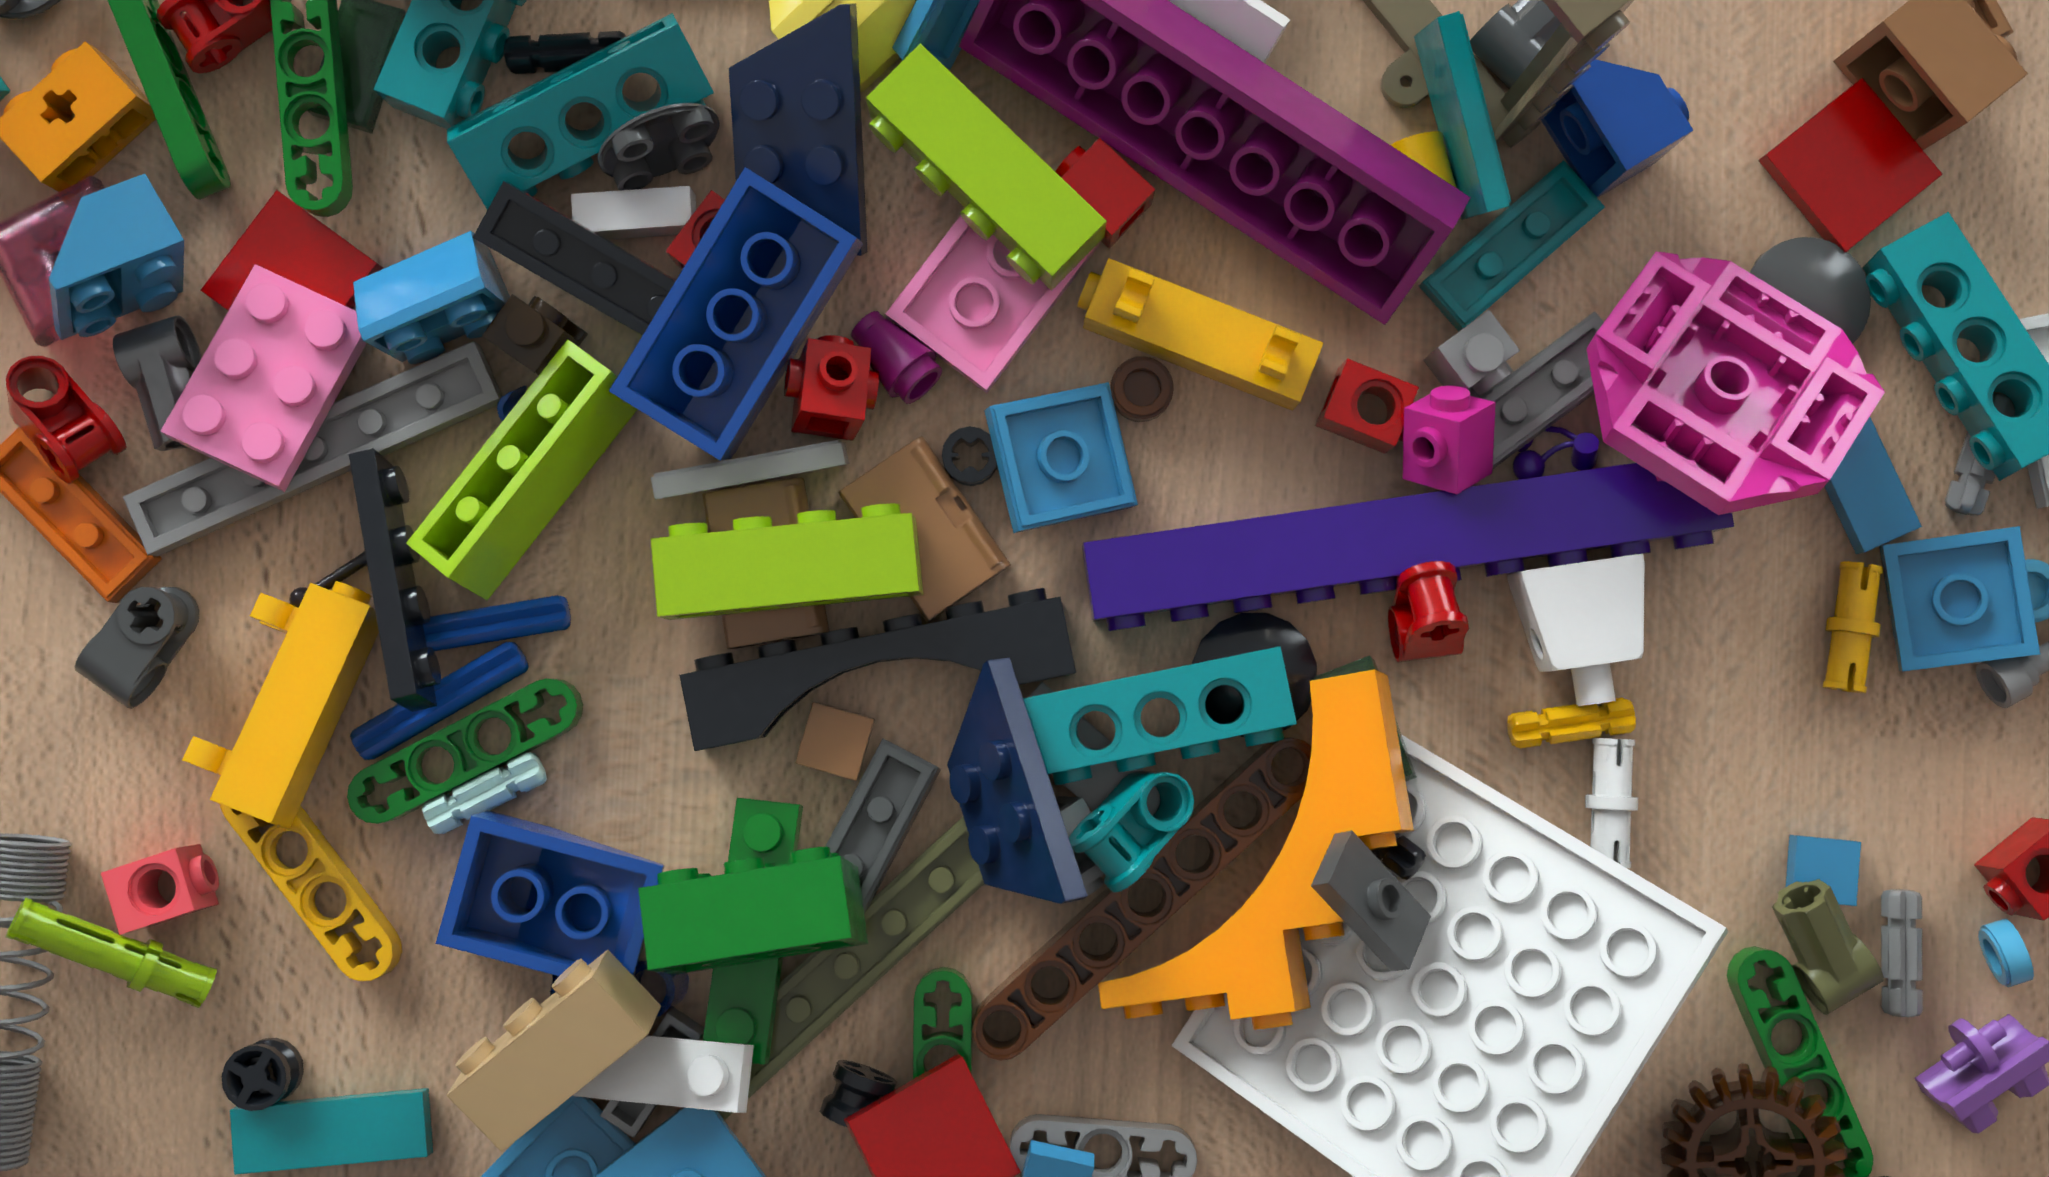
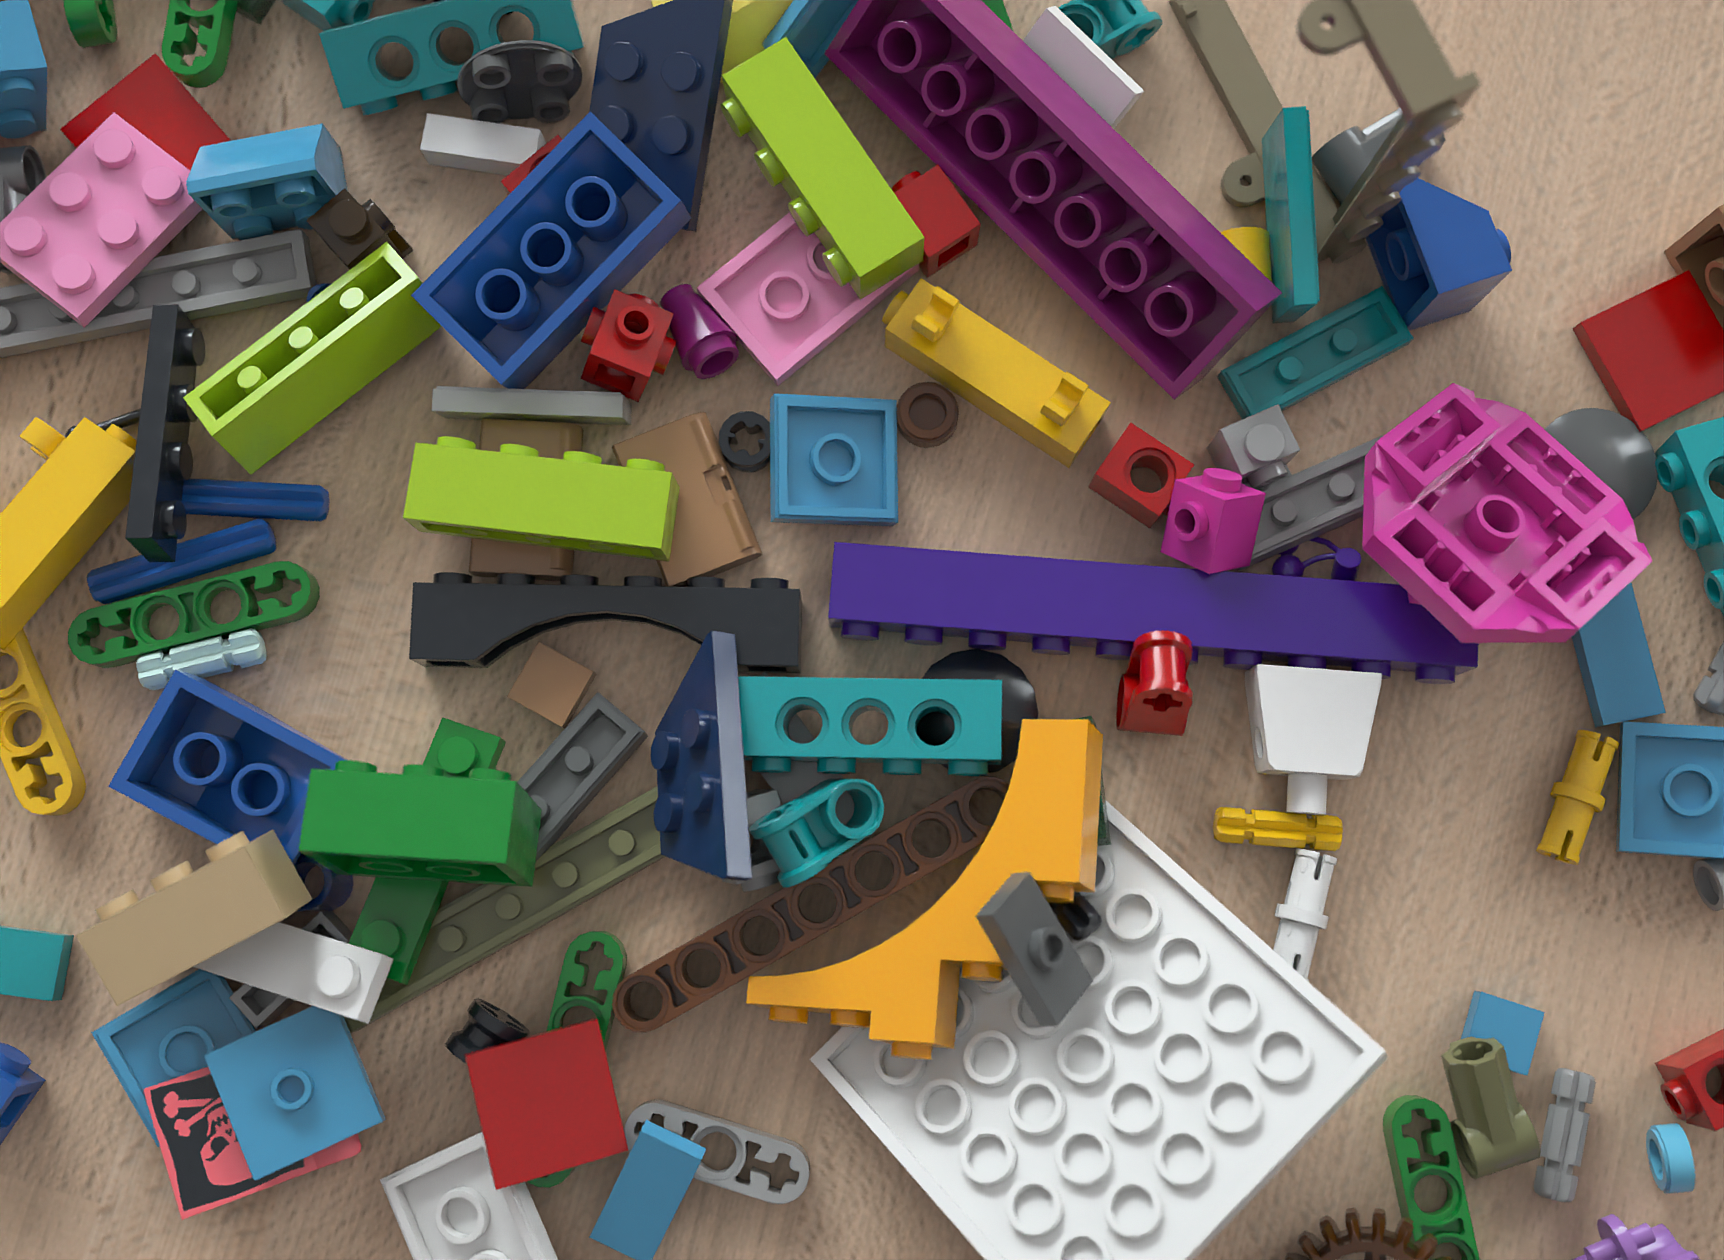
camera: 15 degrees right, 5 degrees down
(573, 258) = (408, 166): black plate -> none

